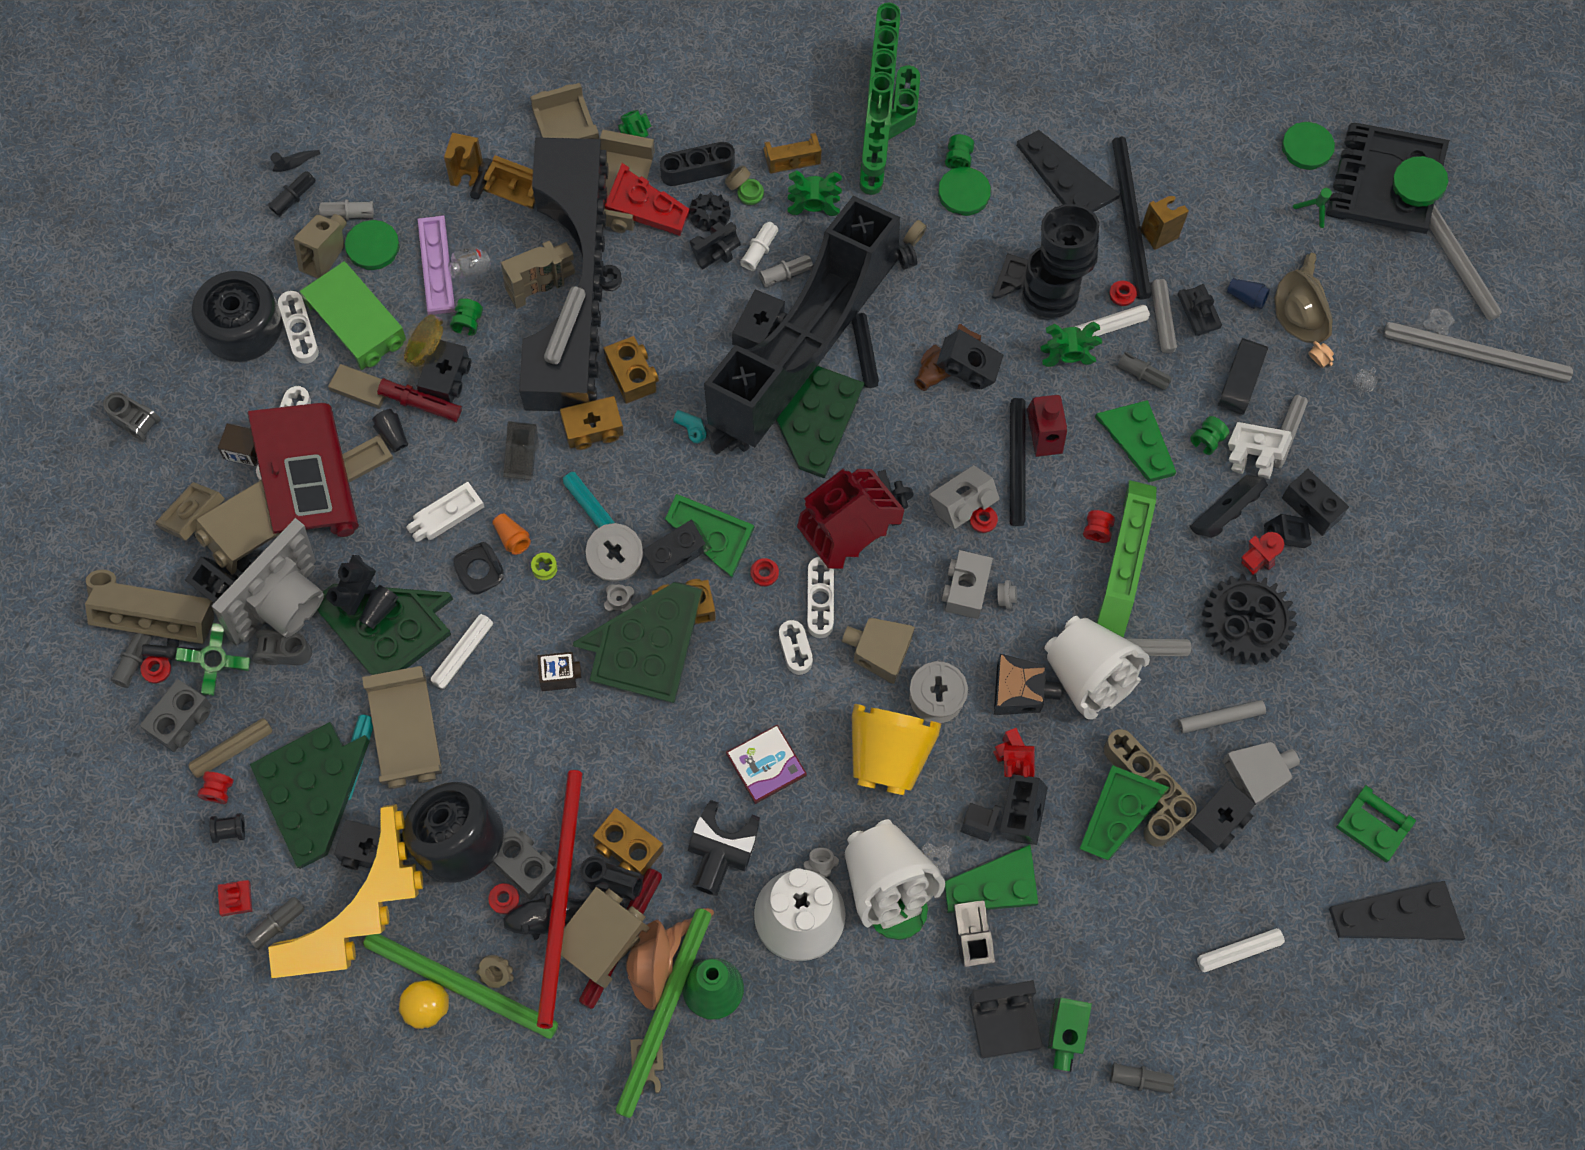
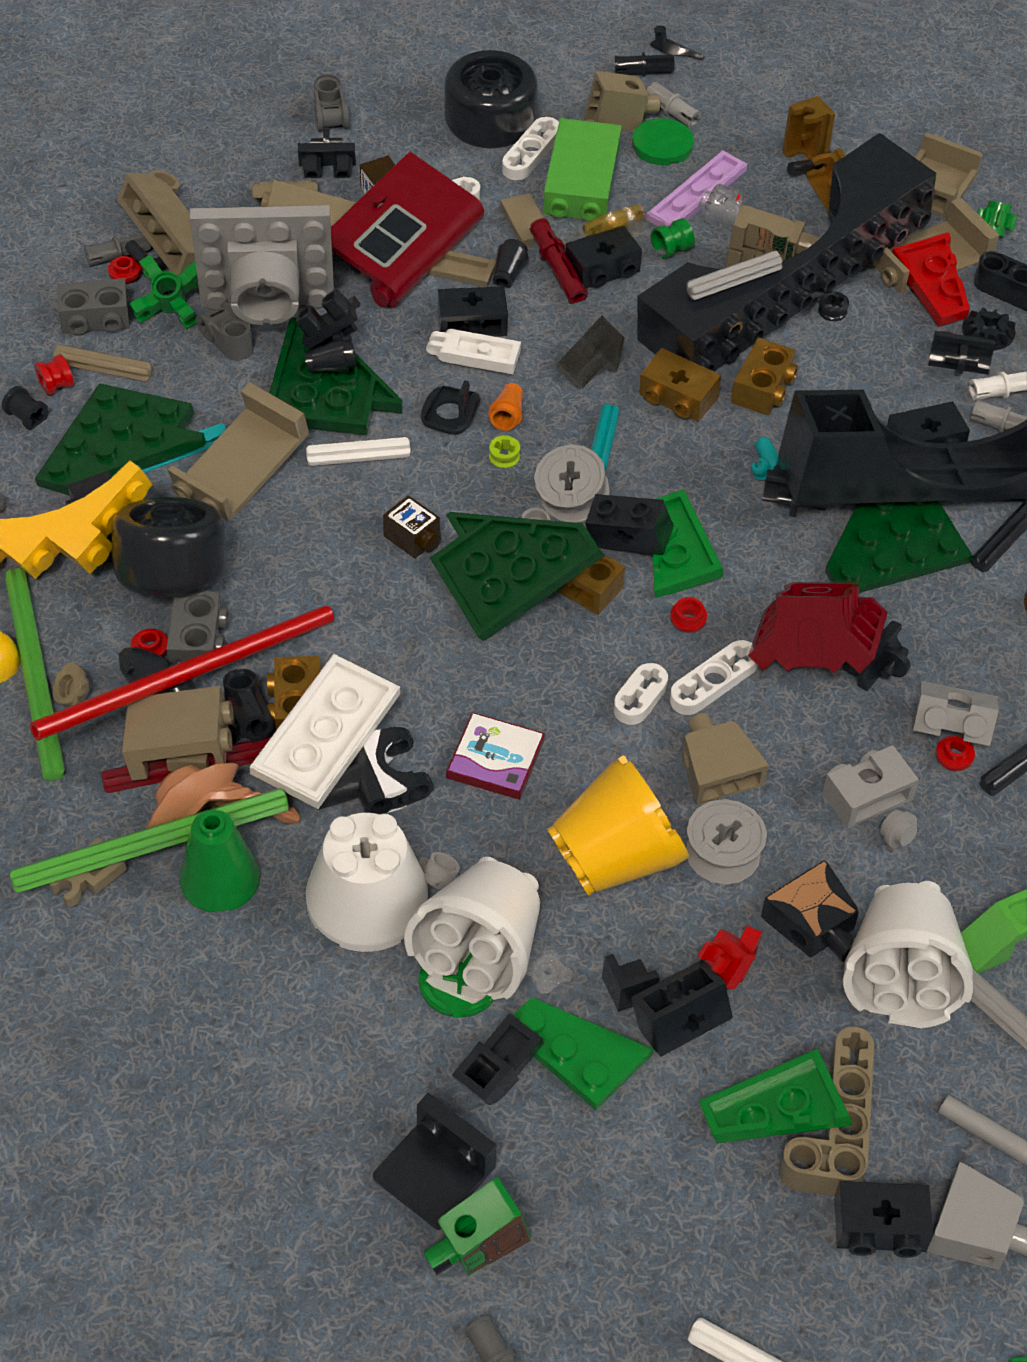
camera: 50 degrees right, 15 degrees down
(171, 468) = (326, 152): none -> black hips
(412, 500) = (479, 308): none -> black brick
(677, 849) = (325, 731): none -> white tile

